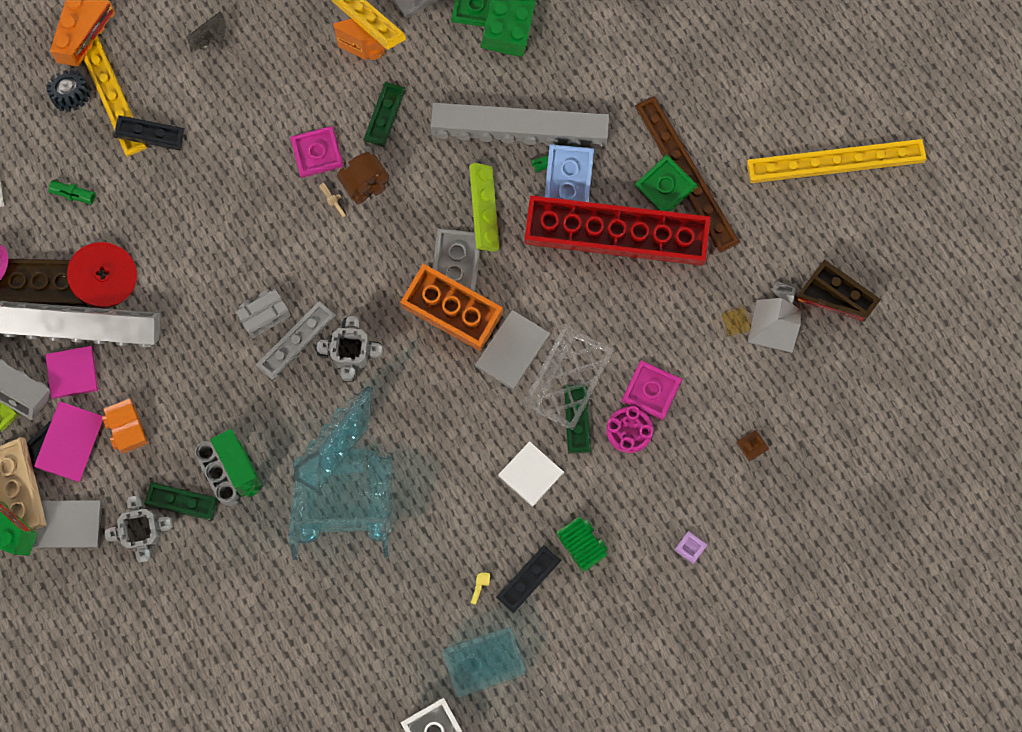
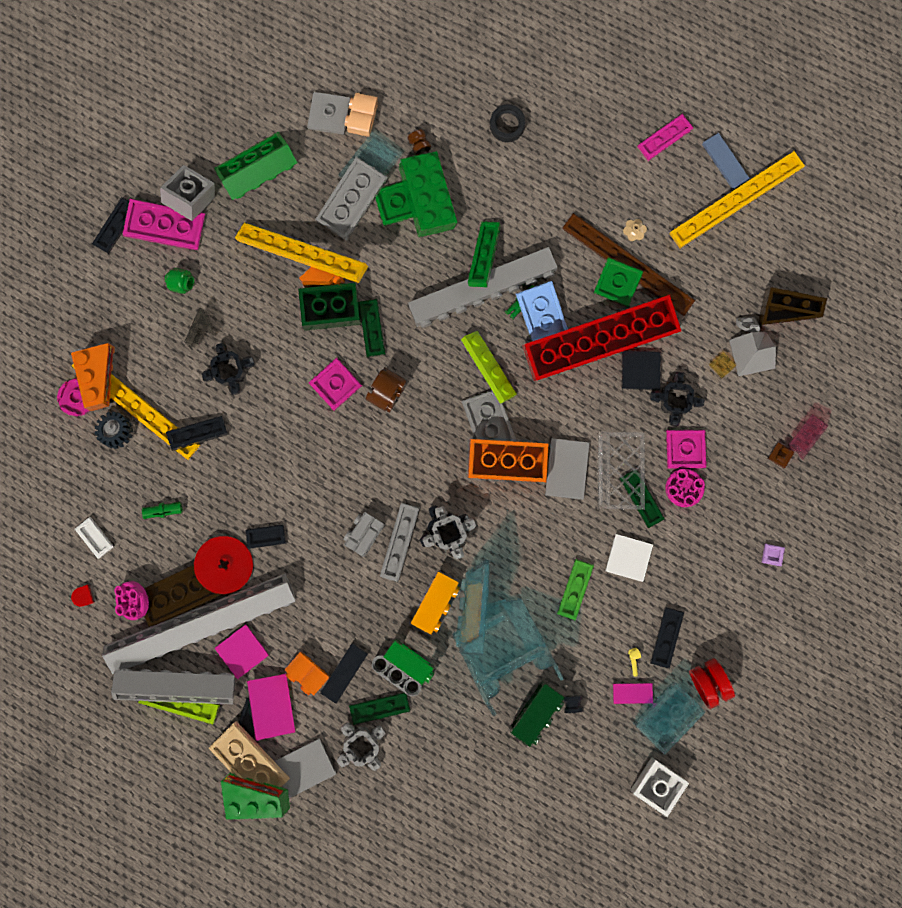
camera: 25 degrees left, 10 degrees up
(41, 44) = (70, 399): none -> dark pink tile
(161, 268) = (265, 536): none -> black tile
(164, 446) = (344, 673): none -> black tile
(211, 99) = (224, 355): none -> black piece
(298, 419) = (435, 603): none -> light orange brick
(332, 199) = (368, 416): tan piece -> none
(342, 585) = (537, 714): none -> dark green brick
(351, 71) = (329, 306): none -> dark green brick
(388, 597) = (573, 704): none -> black wheel
(455, 479) = (575, 589): none -> bright green tile
(459, 620) = (632, 693): none -> dark pink tile
(537, 91) = (484, 254): none -> green plate
(550, 647) = (712, 683): none -> red wheel
(582, 544) = (694, 593): green brick -> none
(644, 286) = (641, 370): none -> black tile
(658, 345) = (679, 379): none -> black piece
(709, 146) = (633, 233): none -> tan plant
(791, 66) = (665, 137): none -> dark pink tile
(791, 438) = (808, 436): none -> clear pink hinge
(843, 117) = (725, 161): none -> sand blue tile

